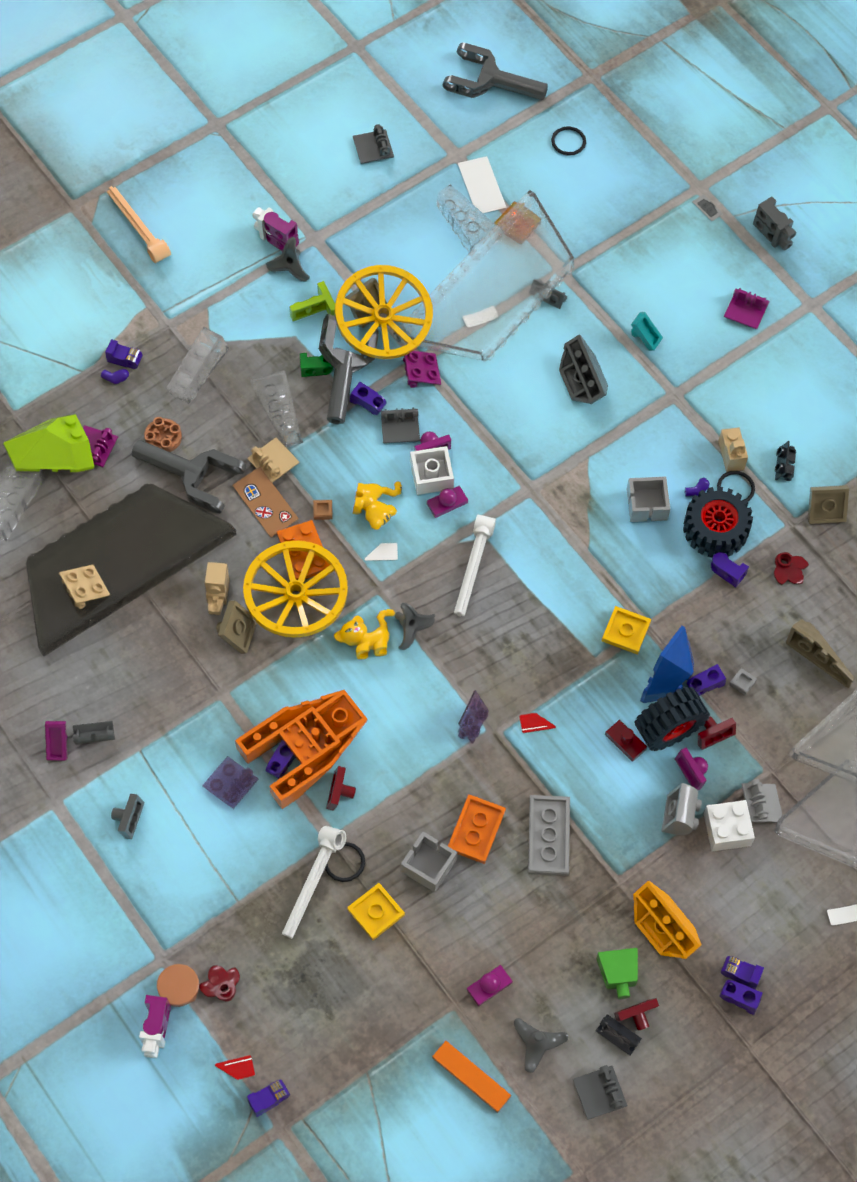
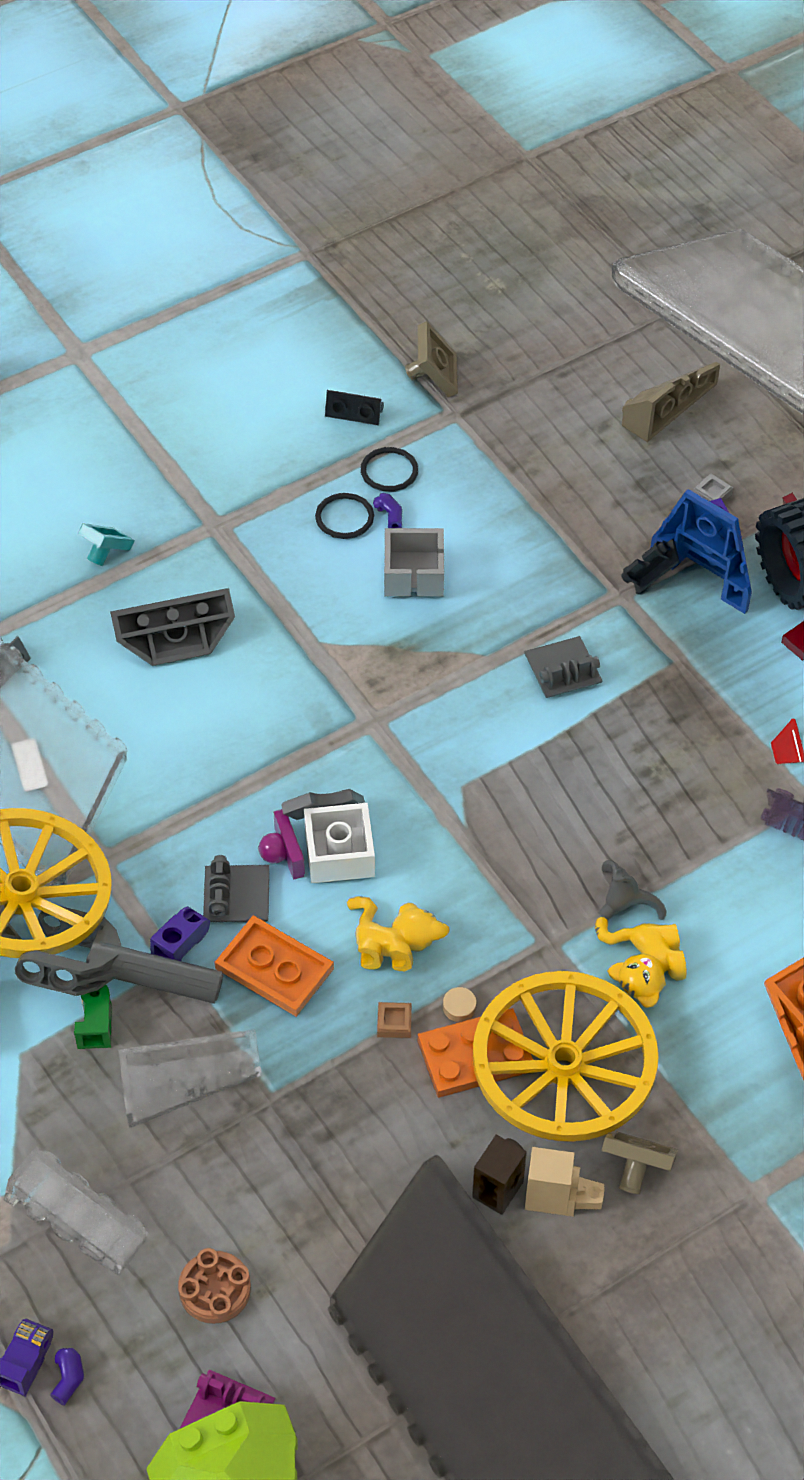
camera: 85 degrees left, 10 degrees down
(84, 585) = (561, 1412): tan hinge -> none
(190, 471) = (302, 1232): dark grey piece -> none
(221, 552) = (499, 1173): none -> dark brown brick
(265, 501) = (372, 1111): medium nougat sticker -> none
(273, 459) = (288, 1095): tan hinge -> none
(333, 541) = (459, 1004): none -> tan tile
(352, 447) = (274, 965): none -> orange plate
(384, 551) = (481, 932): white sticker -> none
(421, 368) = (128, 852): magenta hinge -> none
(447, 501) = (392, 834): magenta tile -> none
(461, 471) = (295, 807): none -> dark grey tile
(483, 530) = (450, 781): white piece -> none
(580, 590) = (563, 666): none -> dark grey hinge
(626, 630) = (633, 614): yellow plate -> none
(661, 635) = (656, 563): none -> black hinge
(696, 450) = (367, 505): none -> black piece
(711, 506) = (457, 485): black wheel -> none
(728, 569) = (534, 486): dark purple leg -> none
(733, 449) = (332, 457): tan hinge -> none
(746, 308) = (75, 422): magenta hinge -> none
(791, 571) = (530, 422): dark red plate -> none

